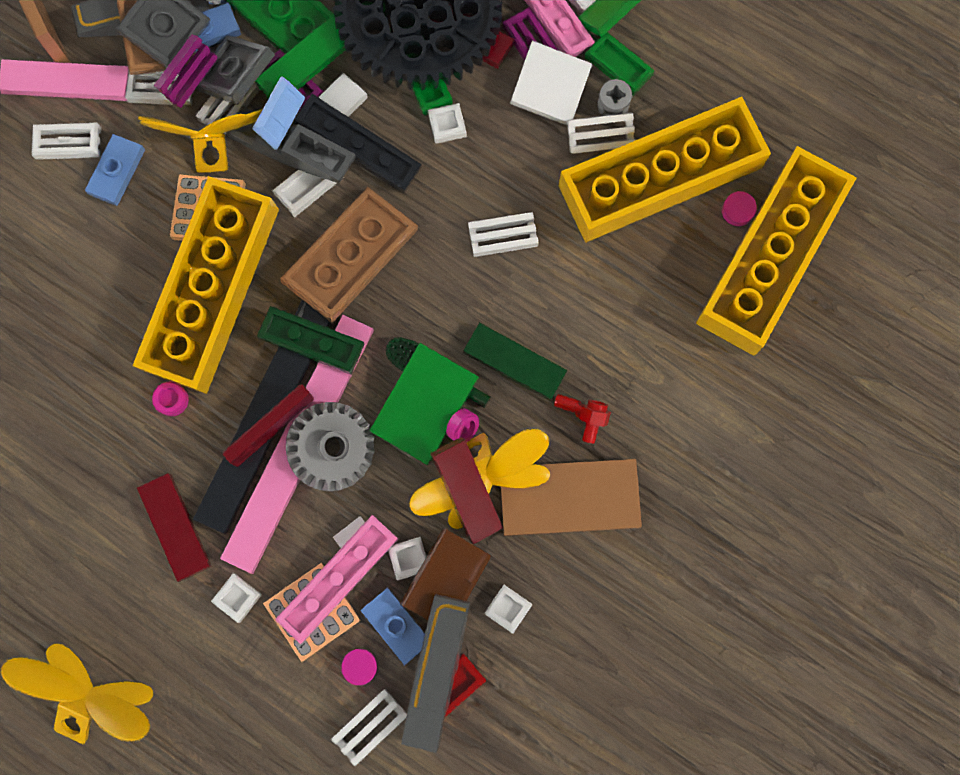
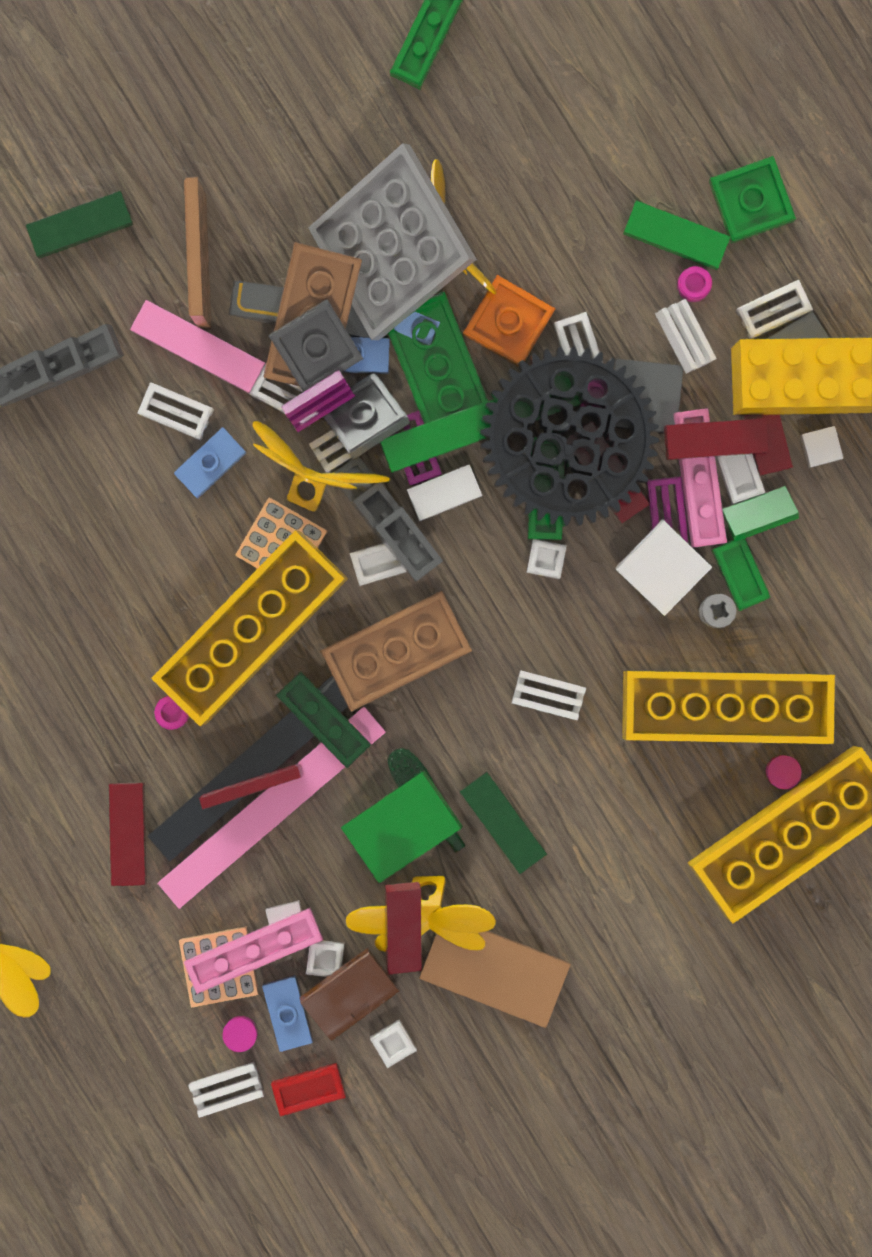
camera: 30 degrees right, 10 degrees up
(236, 598) = (157, 923): white tile -> none
(278, 113) = (388, 488): light blue tile -> none
(307, 442) = (295, 807): light grey gear -> none
(370, 150) = (451, 544): black tile -> none
(435, 673) = (304, 1074): dark grey slope -> none
(462, 424) = (427, 863): dark pink tile -> none
(593, 414) = (550, 906): red piece -> none
(628, 130) = (683, 649): white tile -> none

